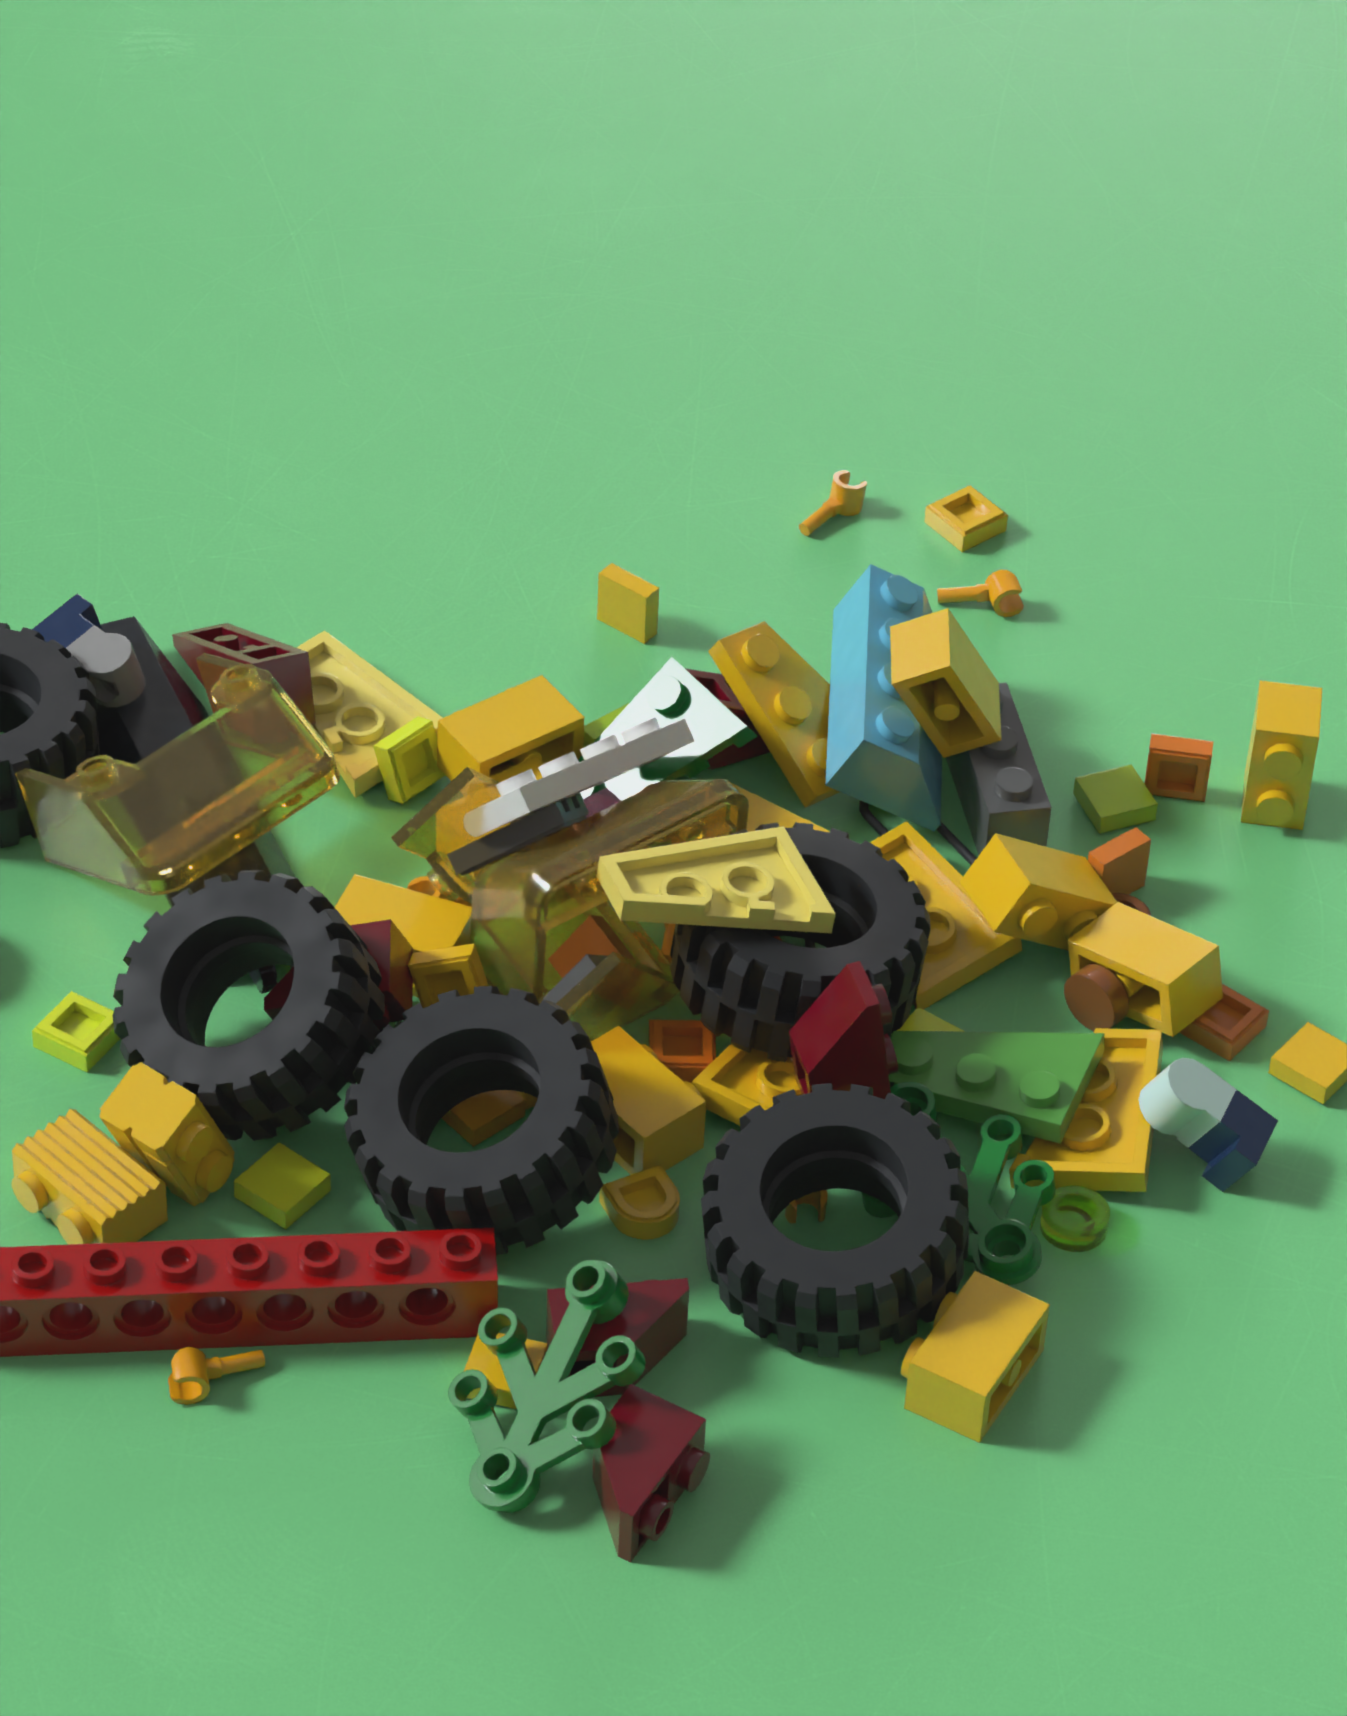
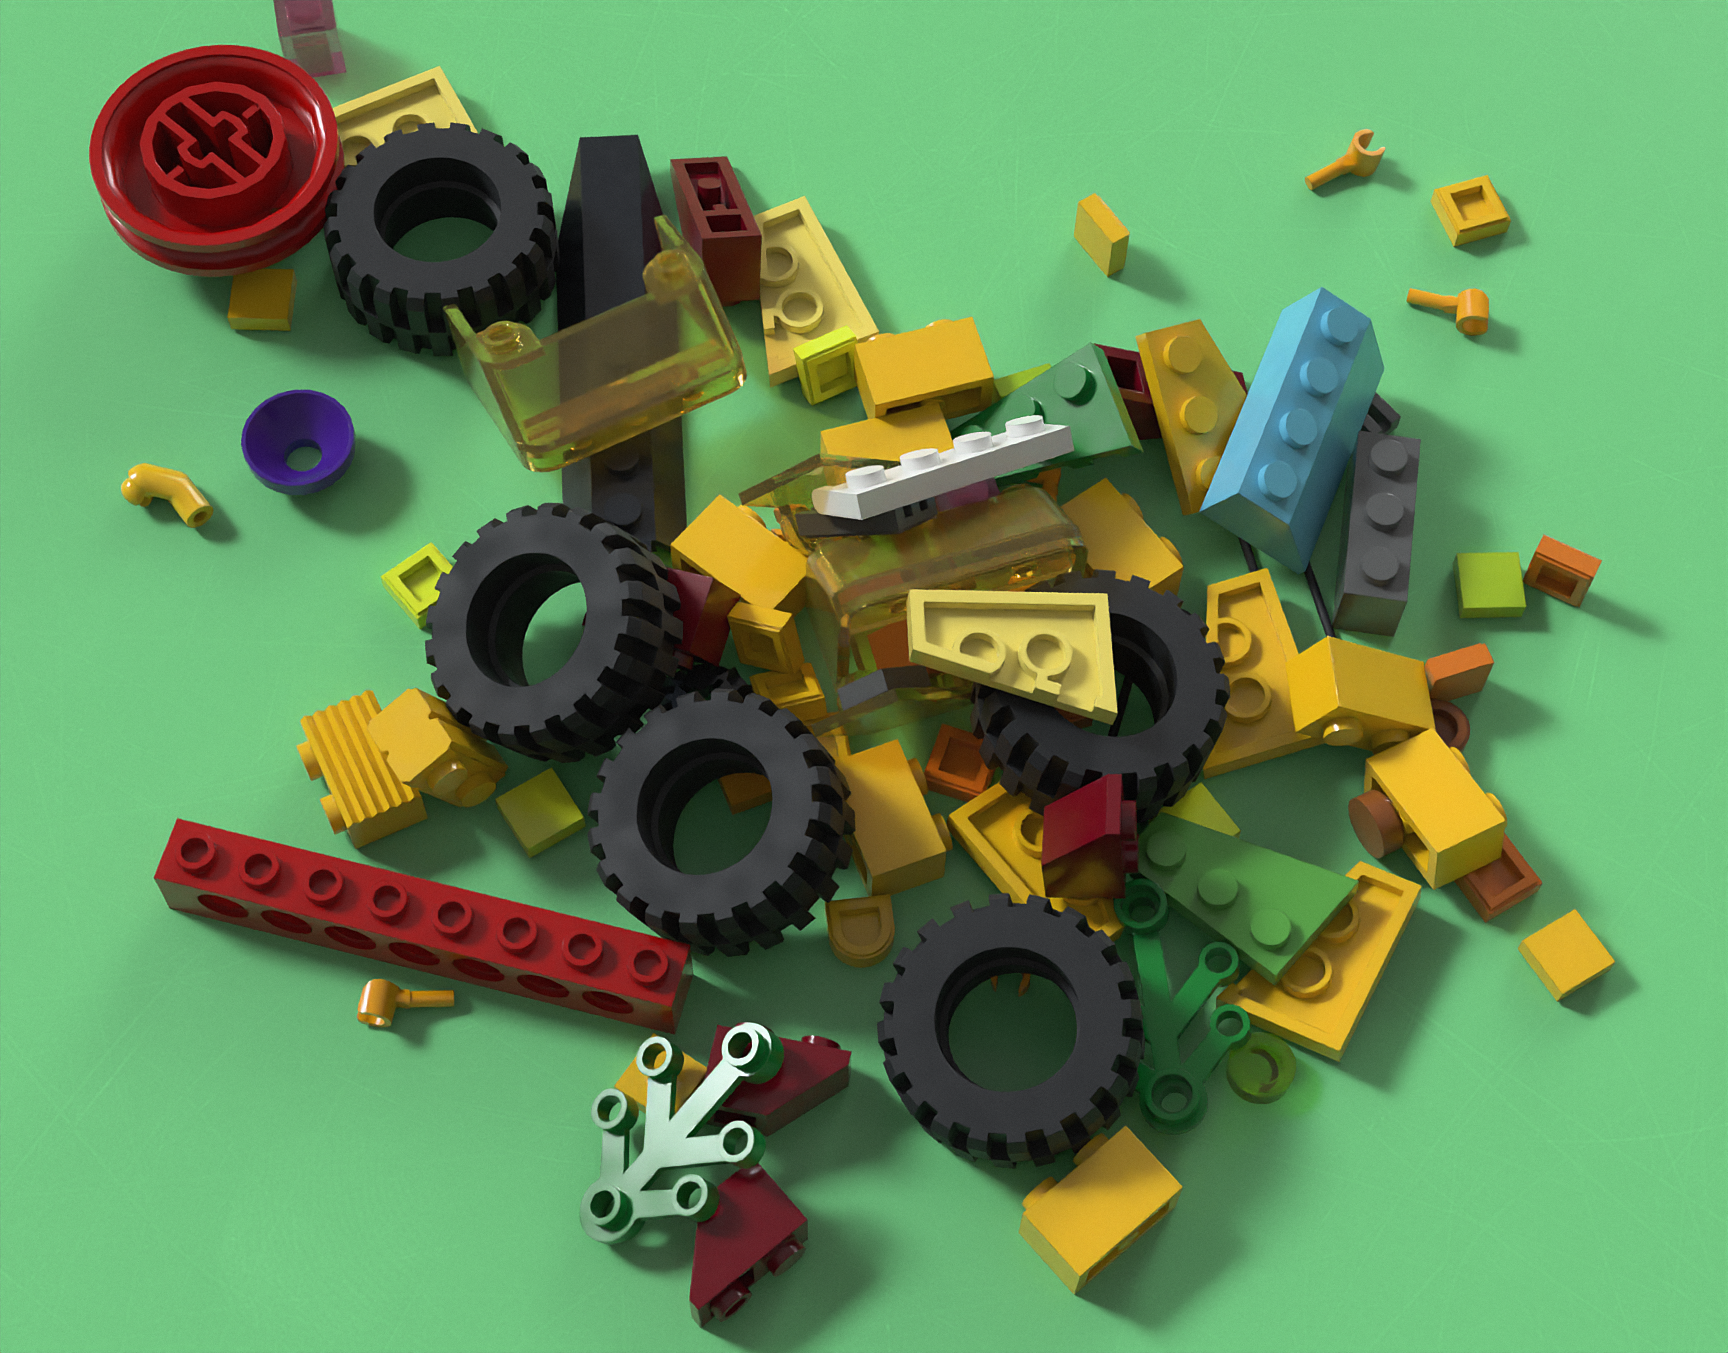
camera: 20 degrees right, 20 degrees up
(104, 655) = (564, 159): light grey leg -> none
(945, 683) = (1342, 447): yellow brick -> none
(1208, 1119) = (1427, 1007): leg -> none
(1281, 755) = (1664, 595): yellow brick -> none

